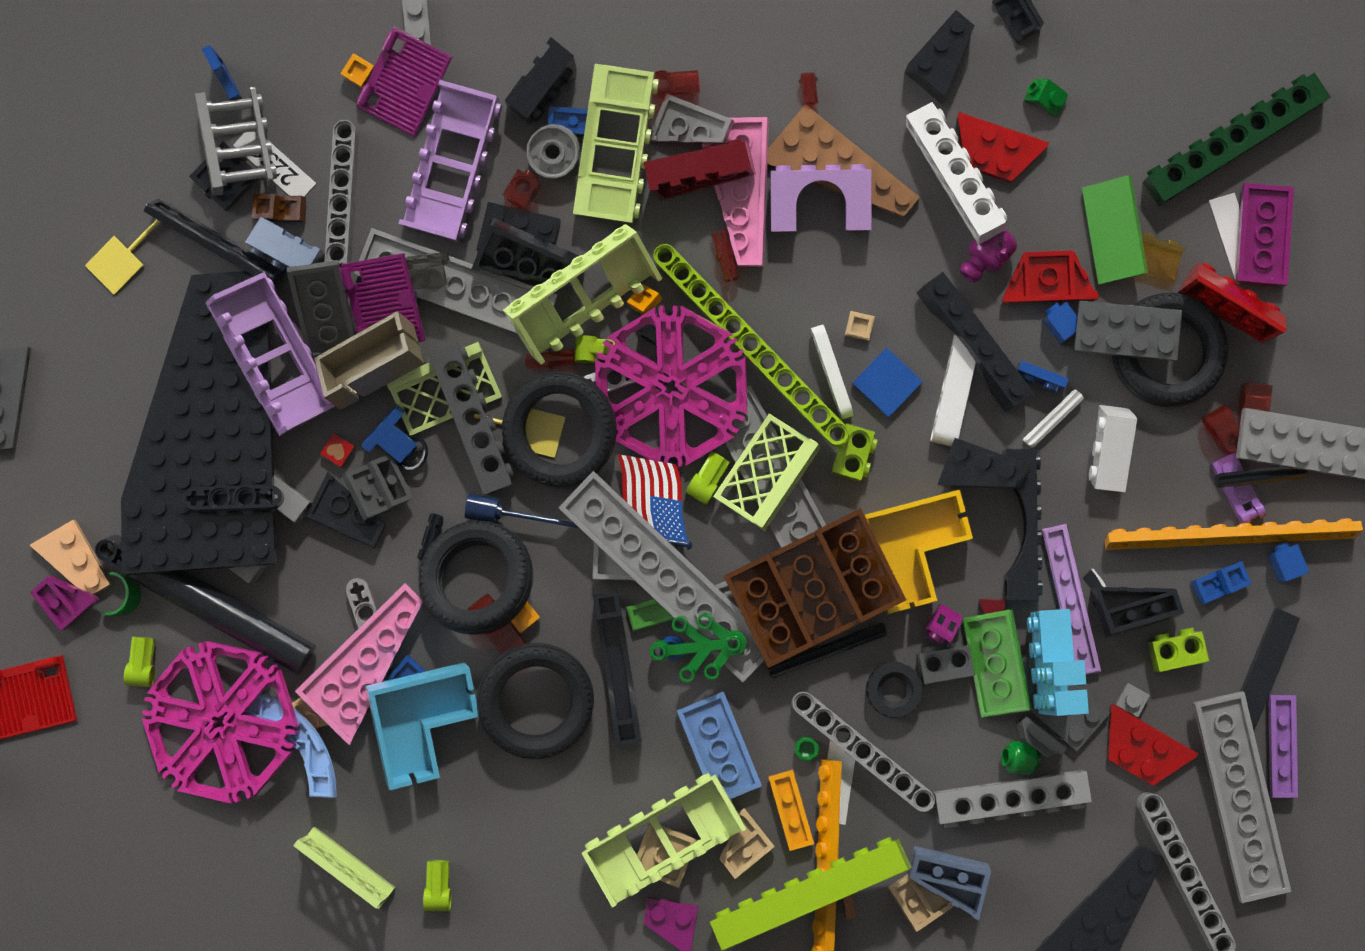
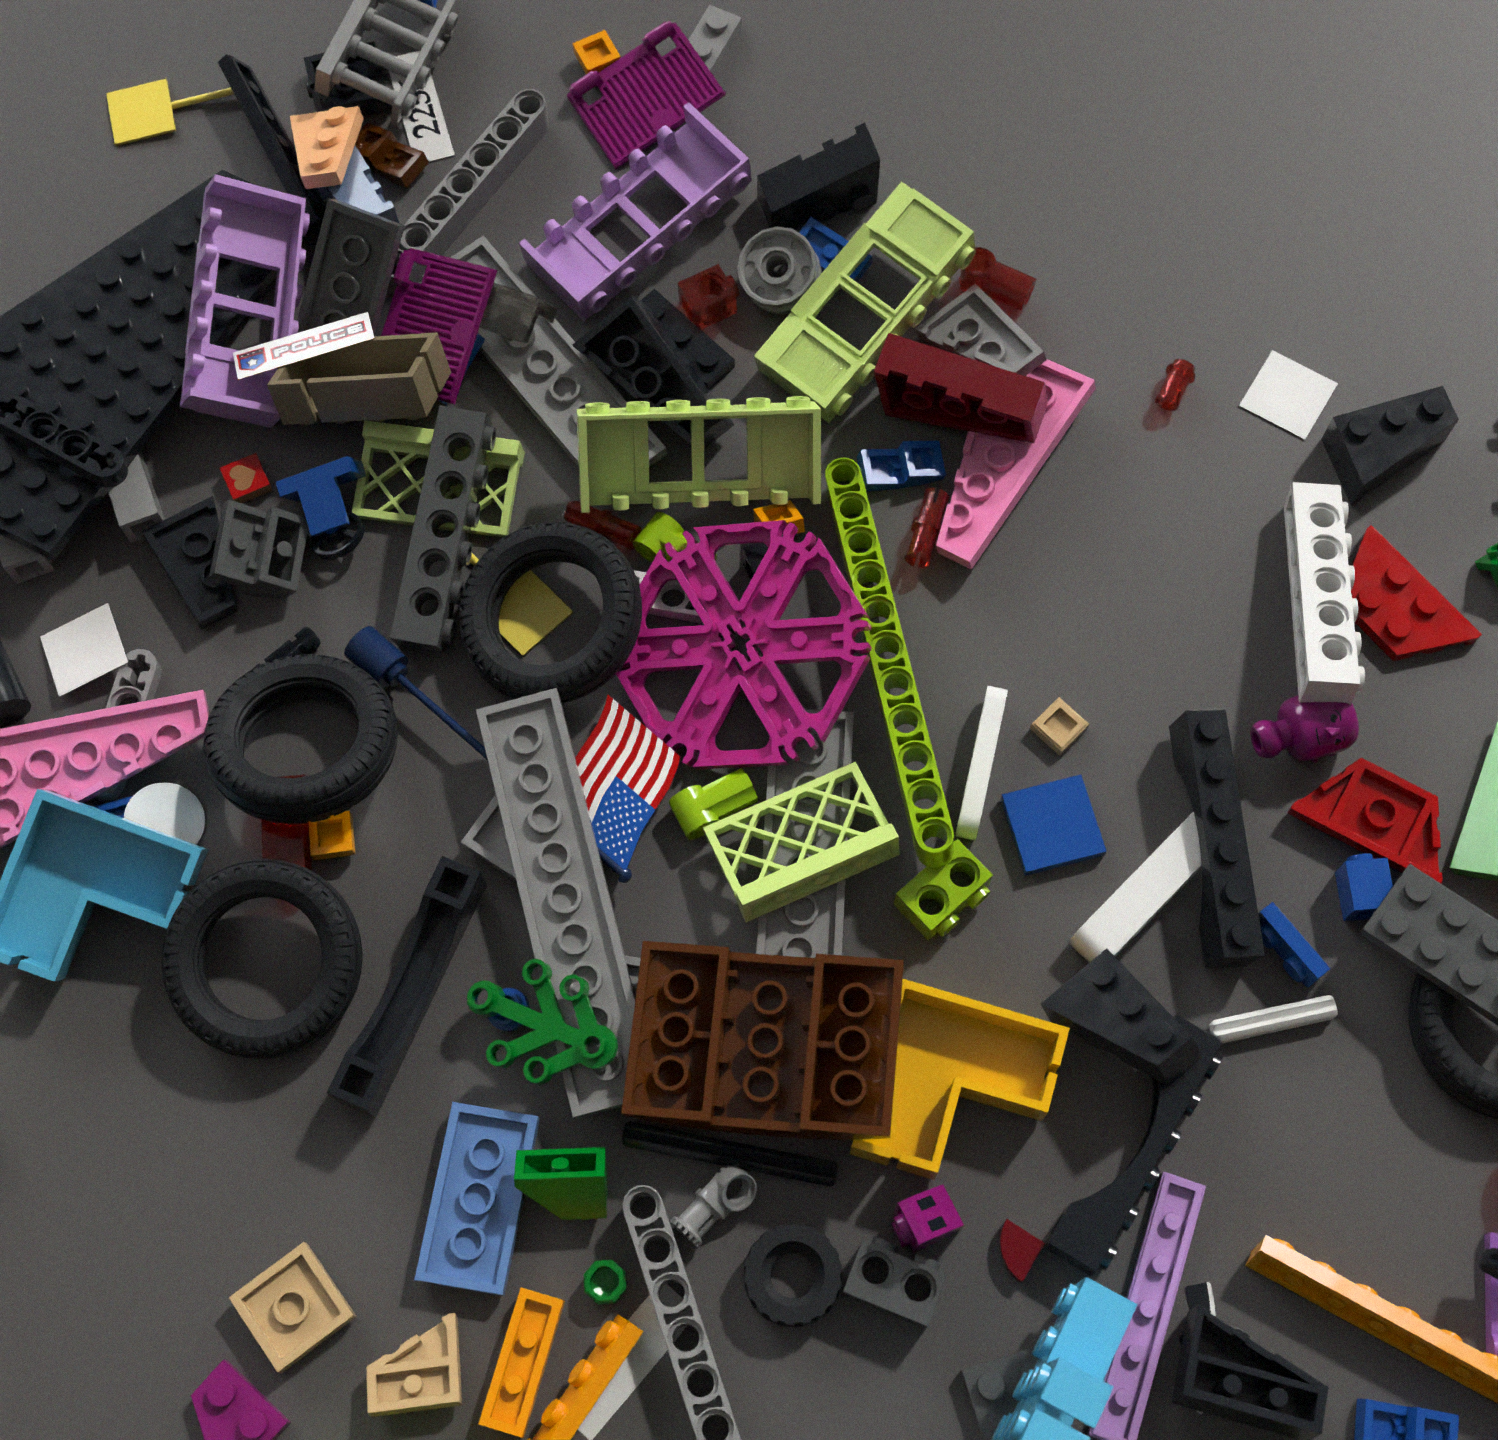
camera: 30 degrees right, 15 degrees down
(245, 228) = (325, 144): none -> light nougat wing
(319, 598) = (83, 649): none -> white sticker
(324, 360) = (303, 345): none -> white sticker
(428, 655) = (168, 810): none -> white sticker
(616, 862) = (210, 1271): yellowish green window -> none
(647, 614) = (502, 941): bright green tile -> none
(689, 226) = (904, 467): none -> blue slope
(758, 714) = (565, 1180): none -> green slope
(816, 142) = (1151, 491): medium nougat wing -> none
(836, 679) = (713, 1204): none -> light grey connector
(853, 183) = (1074, 478): lavender arch -> none
(872, 55) = (1288, 394): none -> white sticker
(997, 663) = (974, 1334): bright green tile -> none
(1112, 448) = (1340, 1114): white wedge -> none

